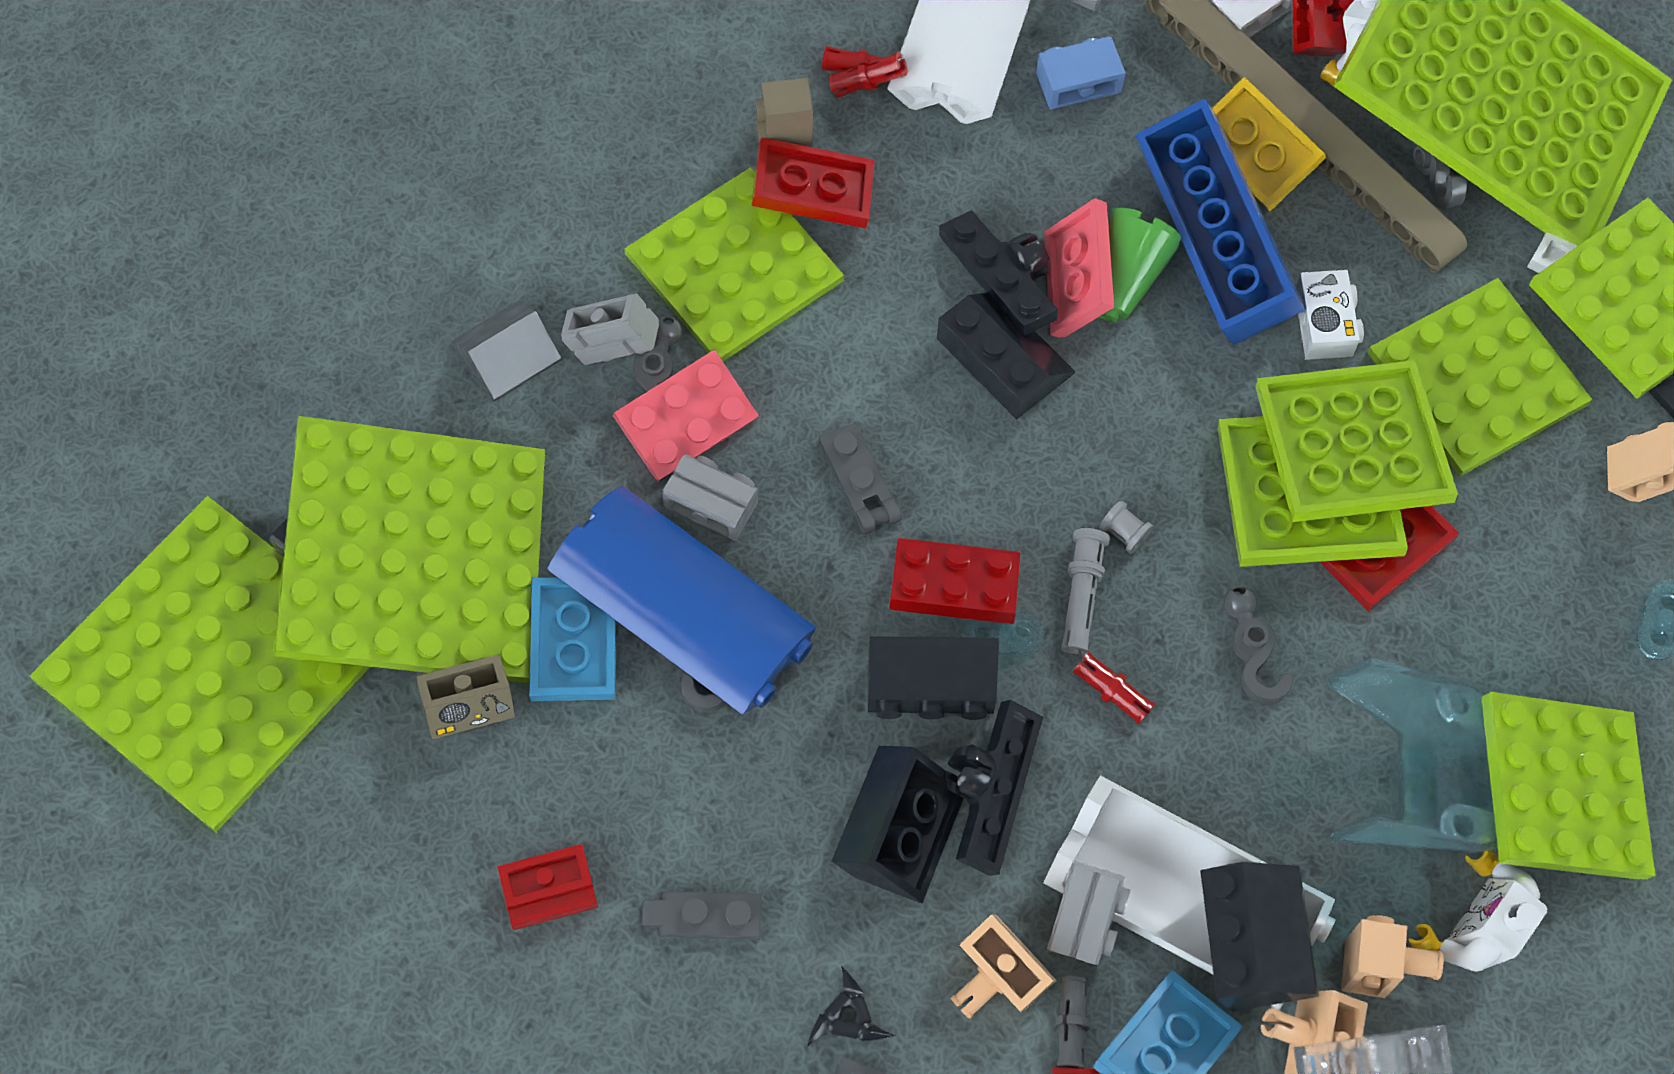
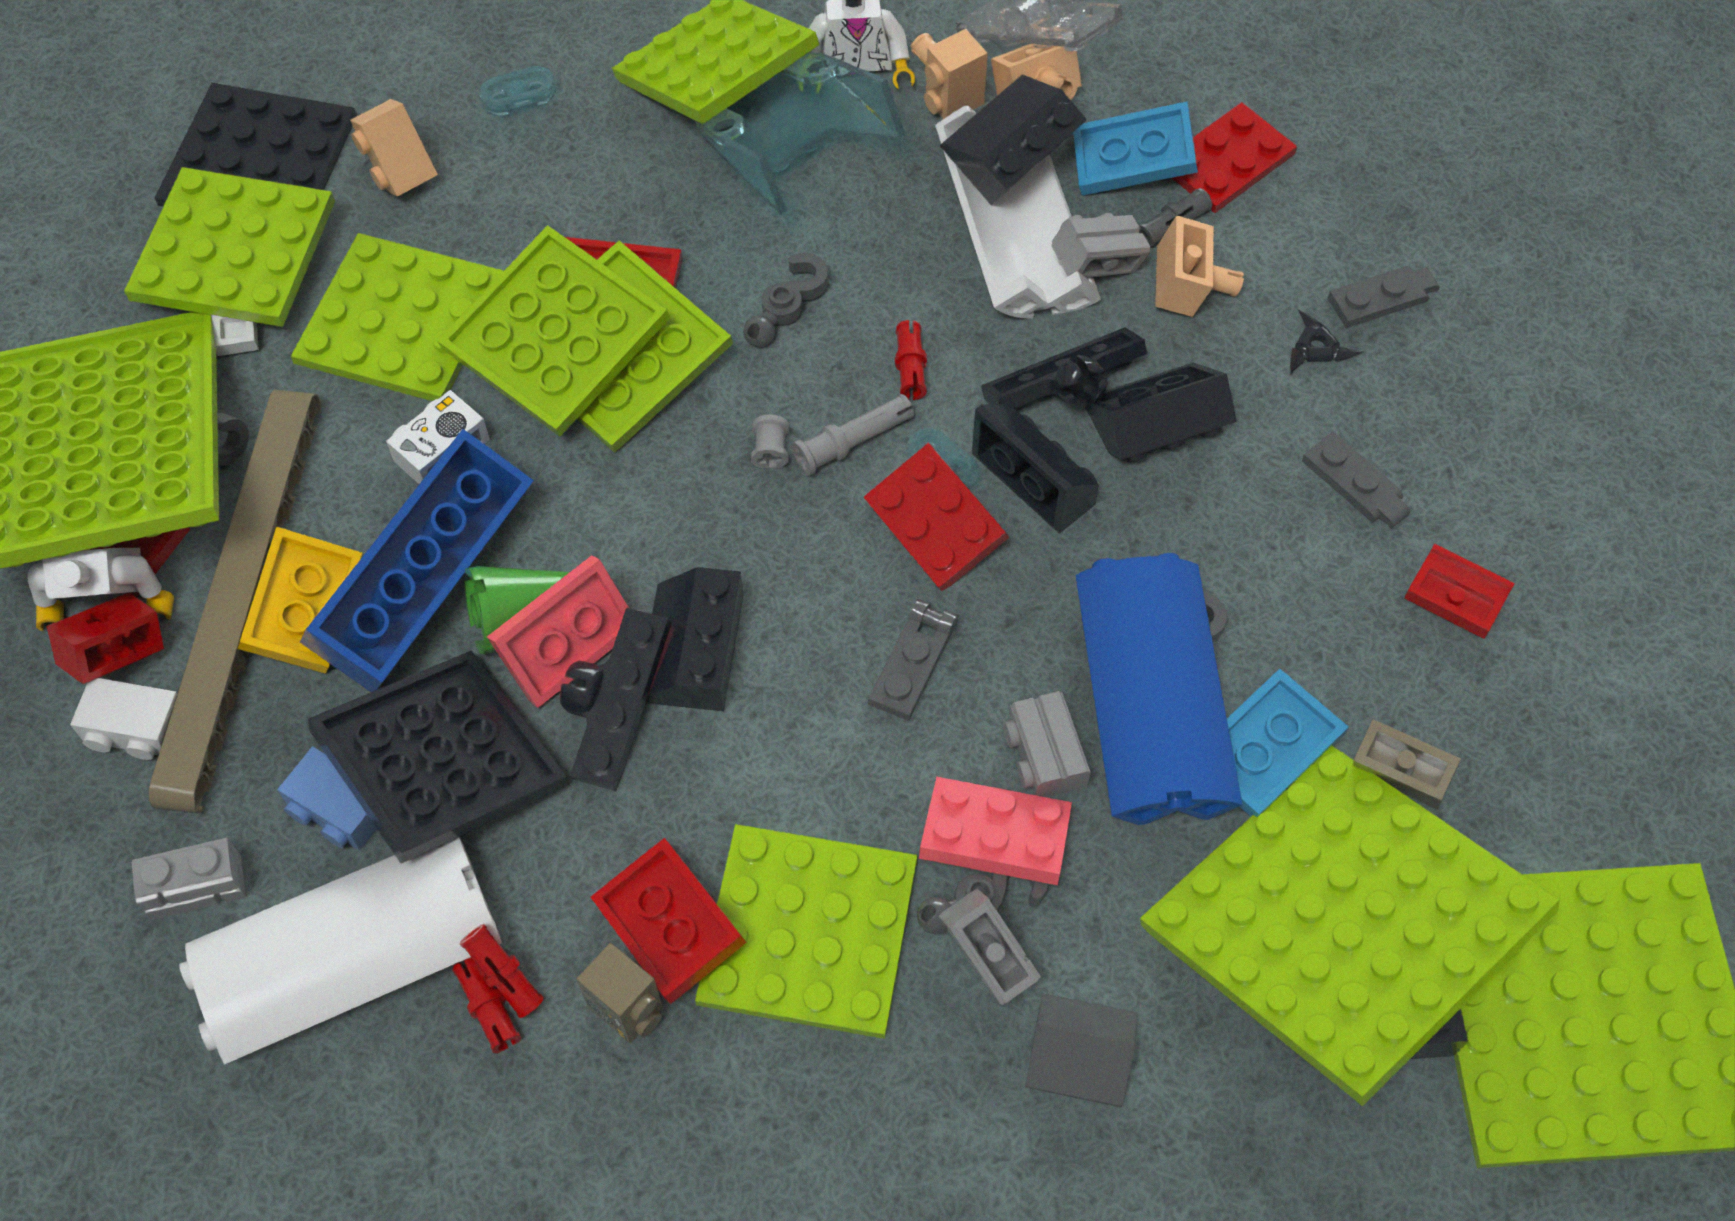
camera: 130 degrees left, 5 degrees down
(1052, 133) = (436, 755): none -> black plate

